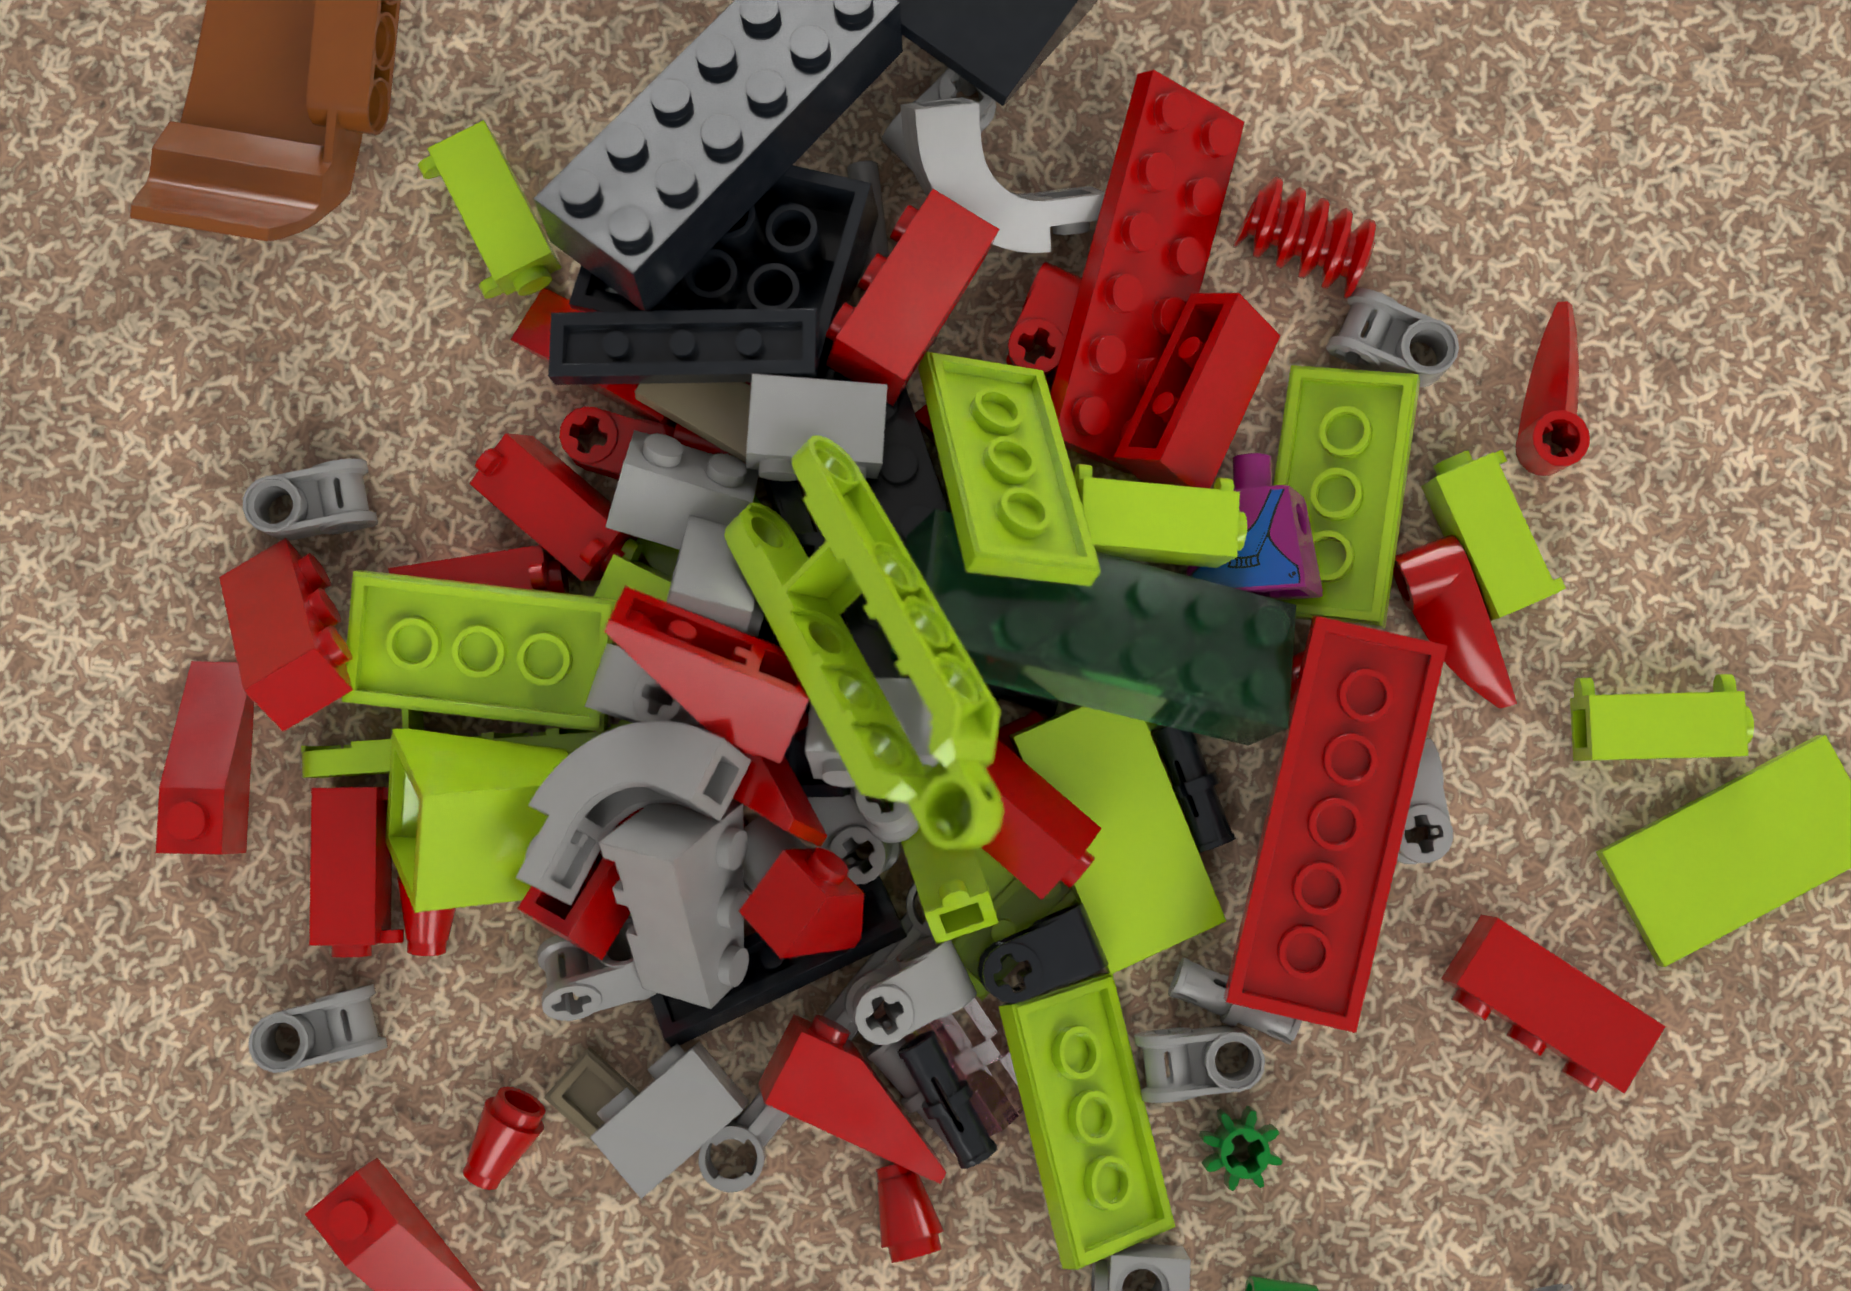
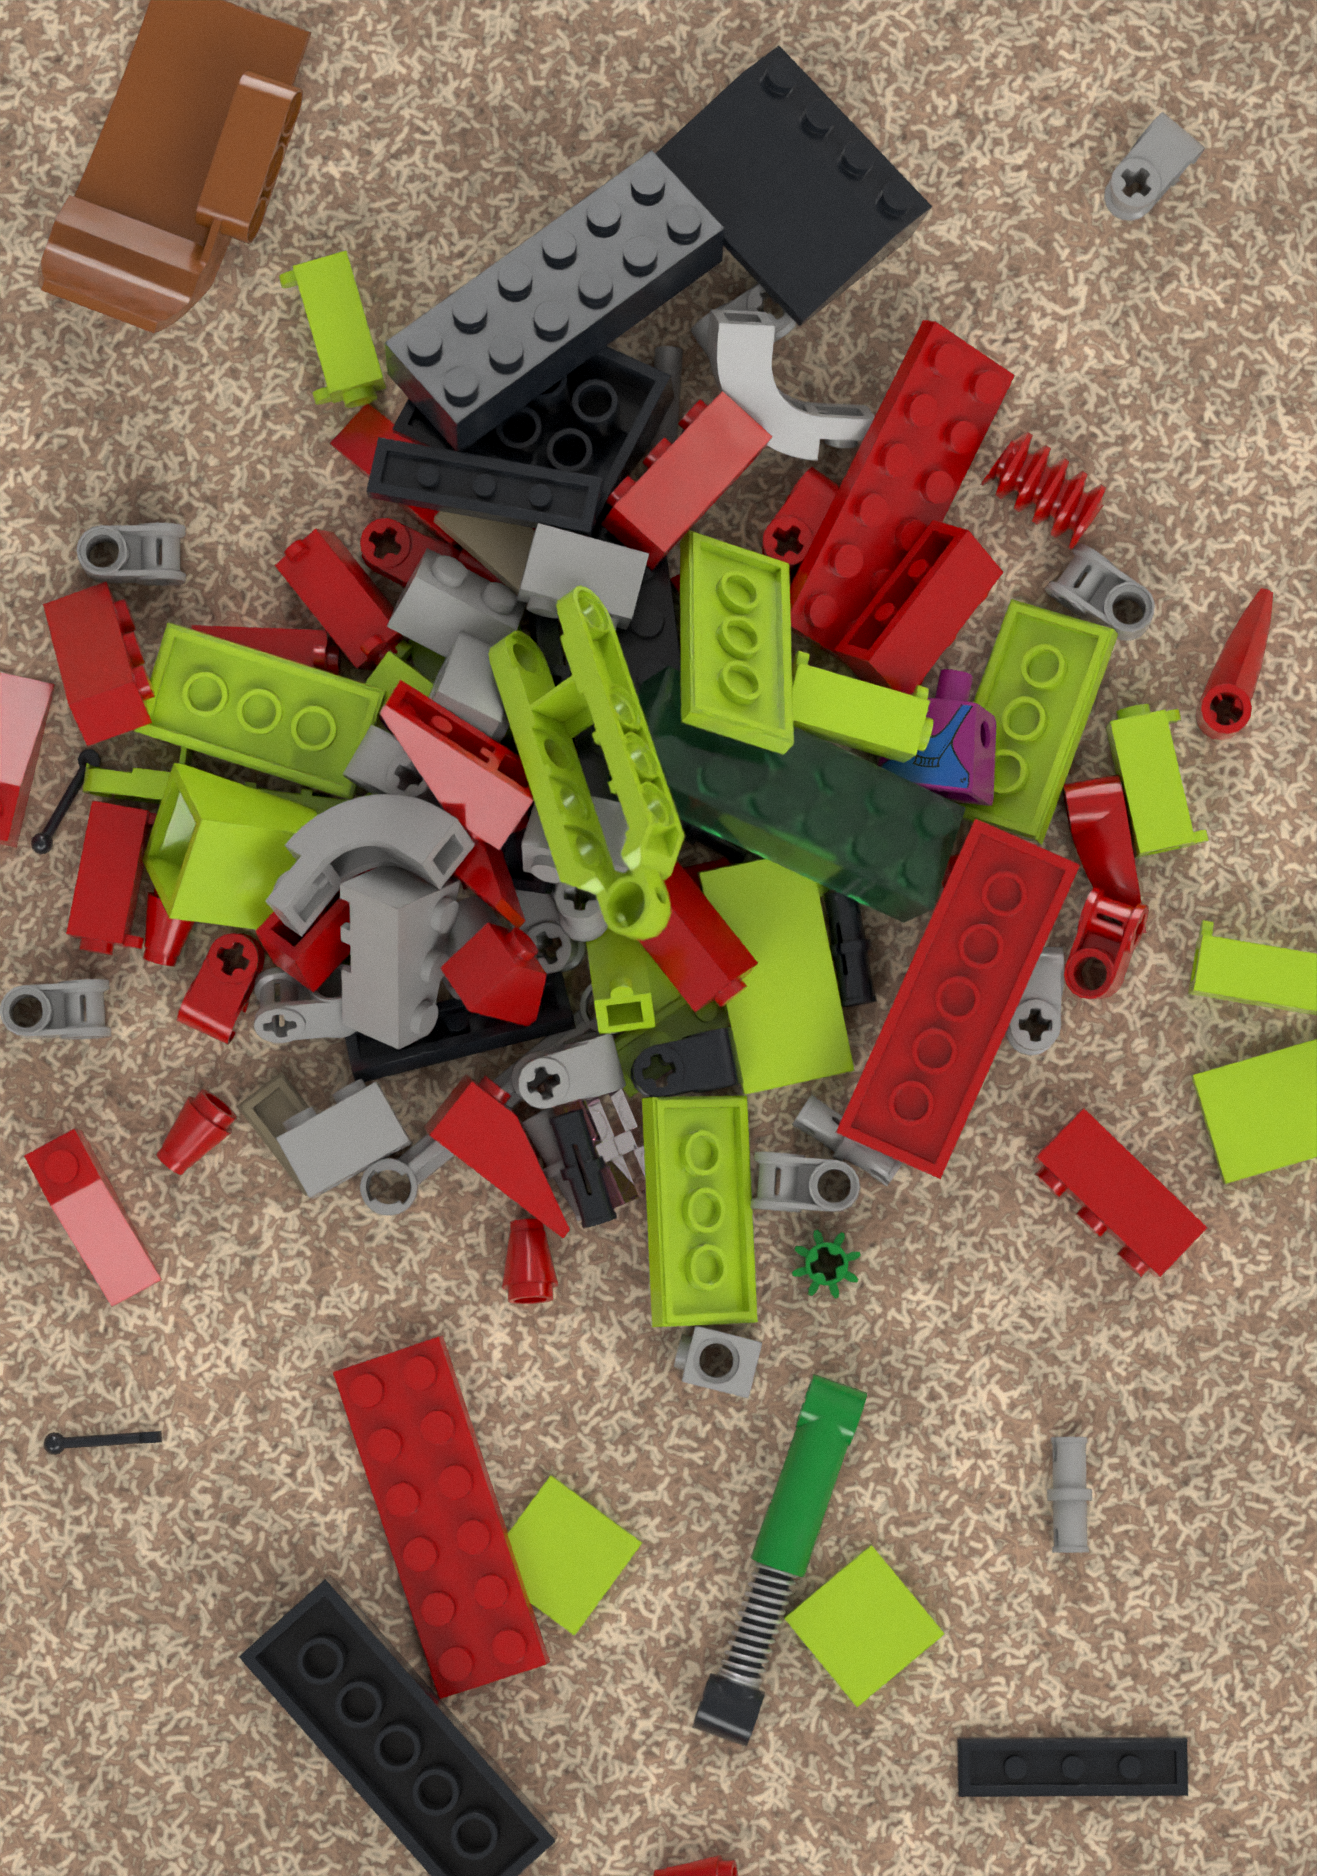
camera: 15 degrees right, 0 degrees up
(273, 841) = (43, 842): none -> black hinge
(500, 974) = (219, 995): none -> red piece
(1479, 724) = (1105, 941): none -> red piece

